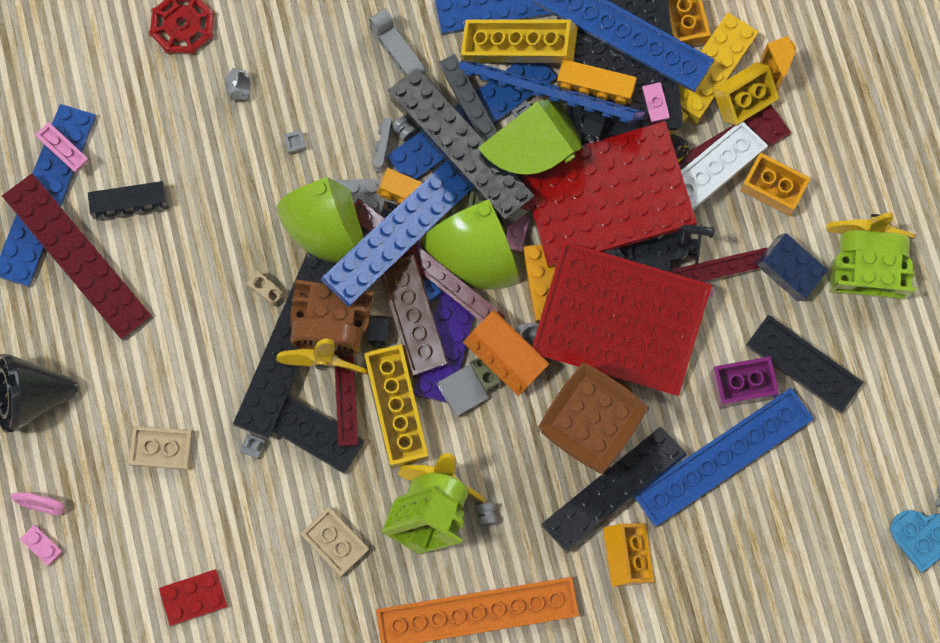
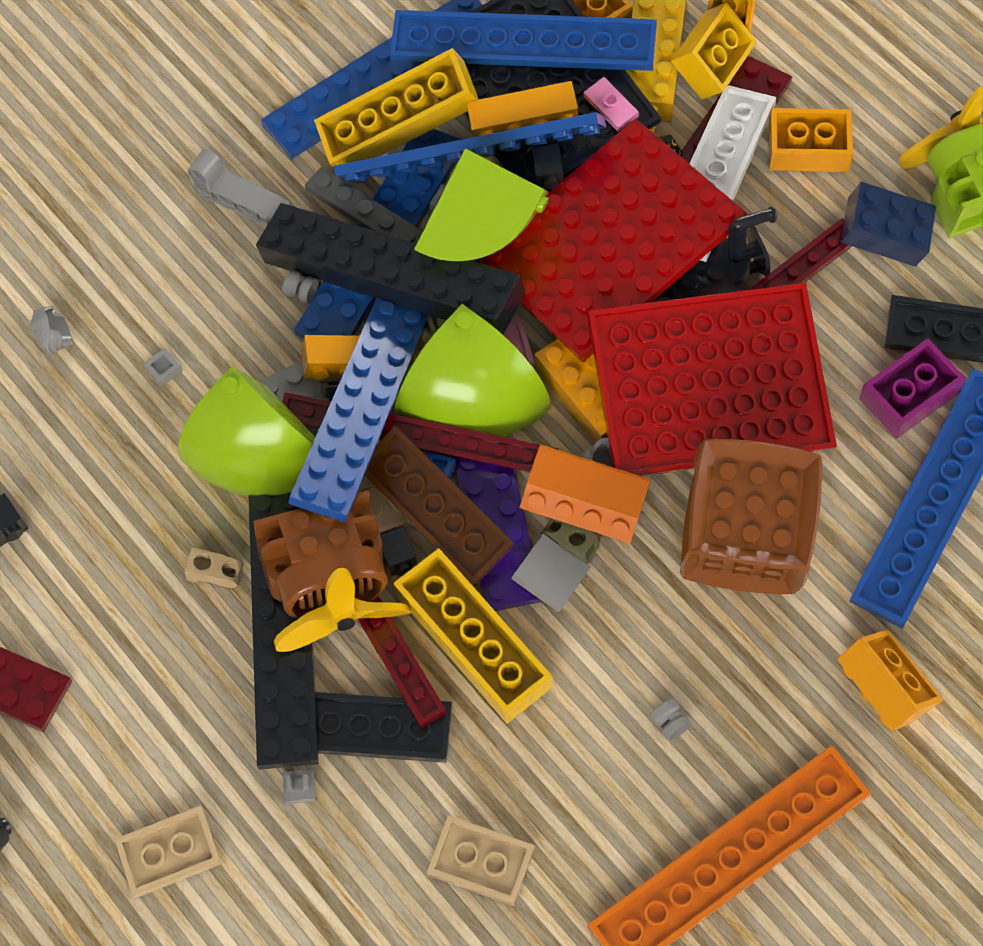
camera: 20 degrees left, 10 degrees down
(382, 146) = (282, 320): light grey plate -> none
(431, 508) = (593, 742): lime brick -> none
(614, 490) = (821, 607): black plate -> none

